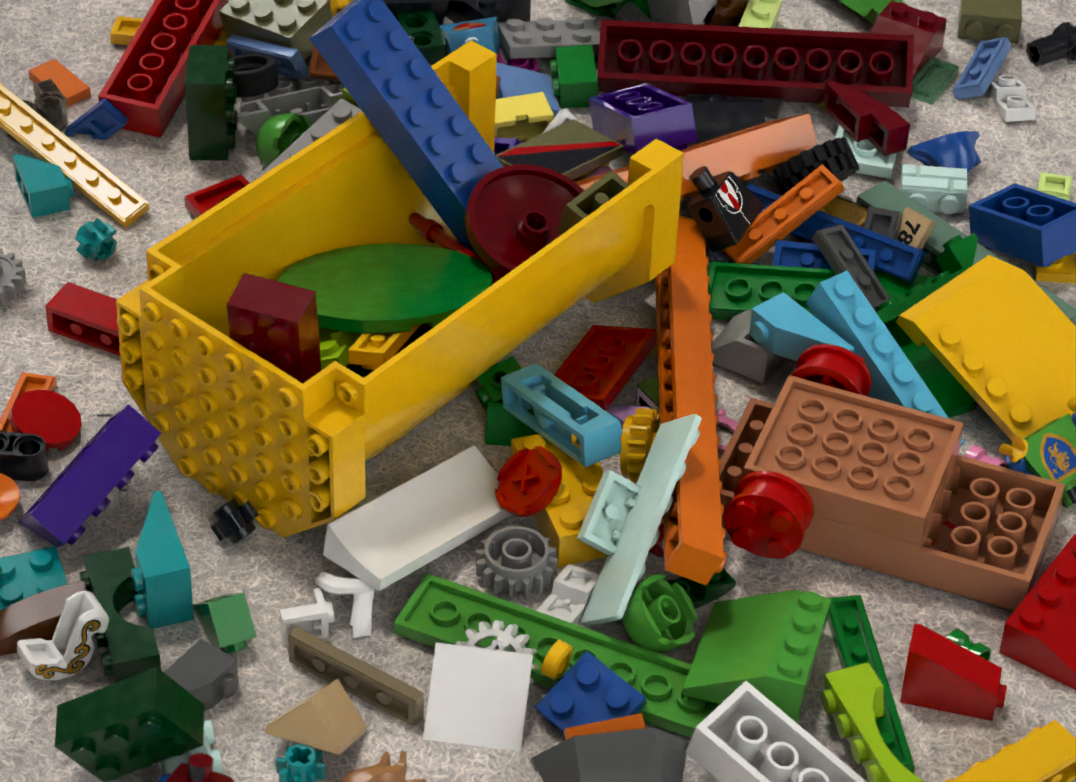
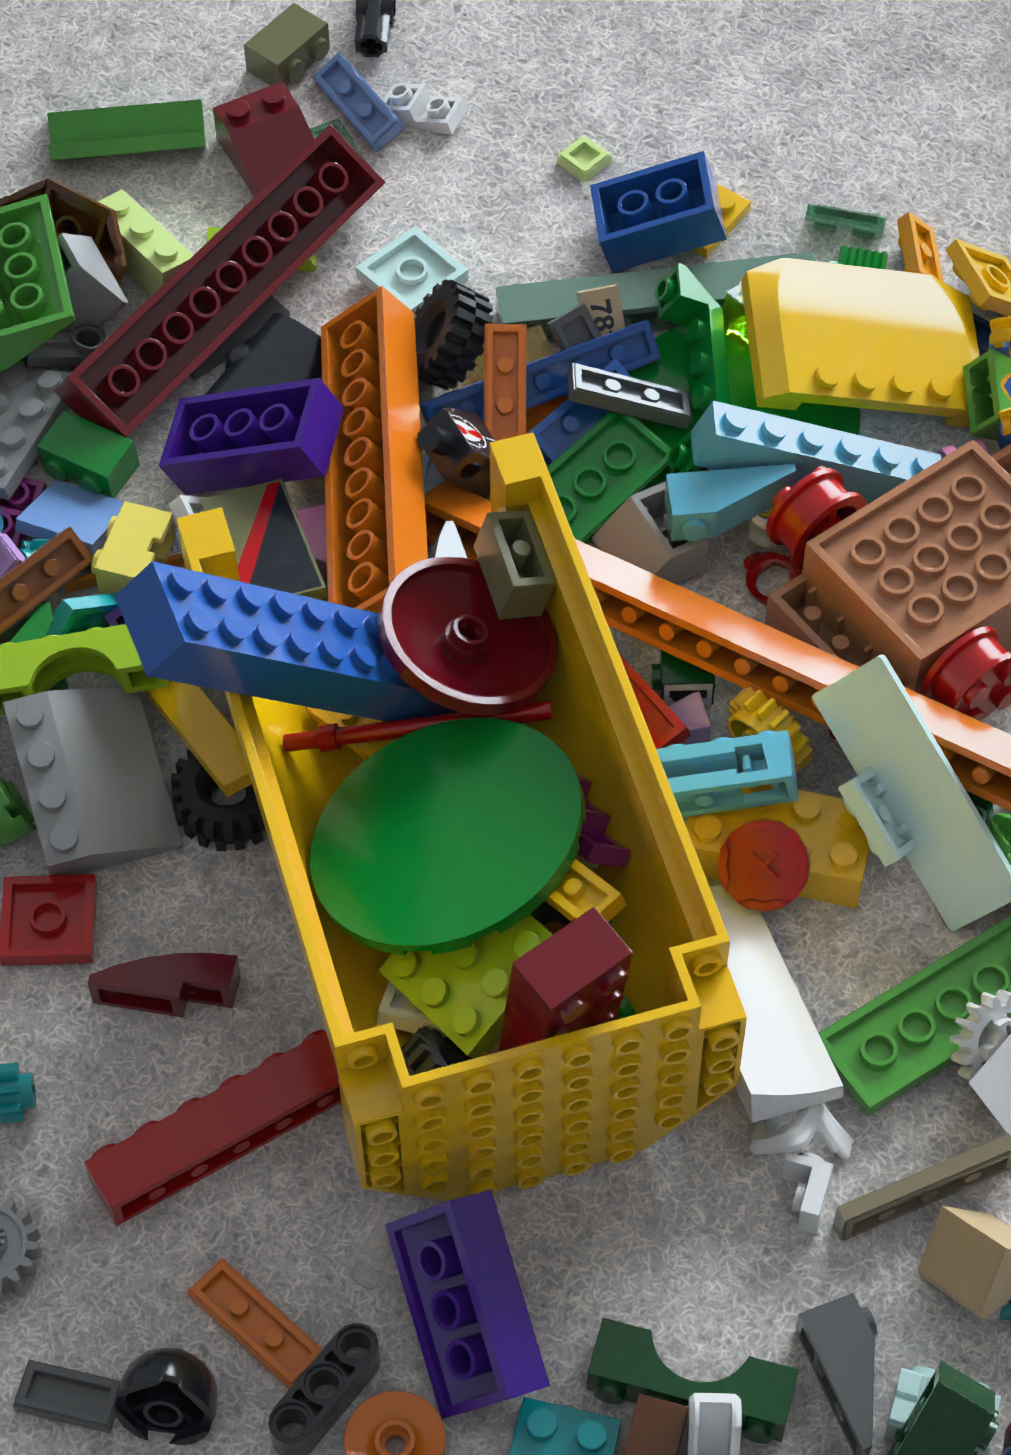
camera: 55 degrees left, 15 degrees up
(48, 416) = (300, 1305): red tile -> none
(161, 570) = (655, 1293): teal slope -> none
(226, 621) = (759, 1273): green slope -> none
(234, 520) = (610, 1185): black gear -> none
(516, 561) = (840, 962): light grey gear -> none
(570, 594) = (915, 921): white slope -> none
(866, 118) = (386, 243): dark red slope -> none
(935, 187) = (523, 253): light aqua brick -> none
(949, 150) = (483, 210): blue hat -> none

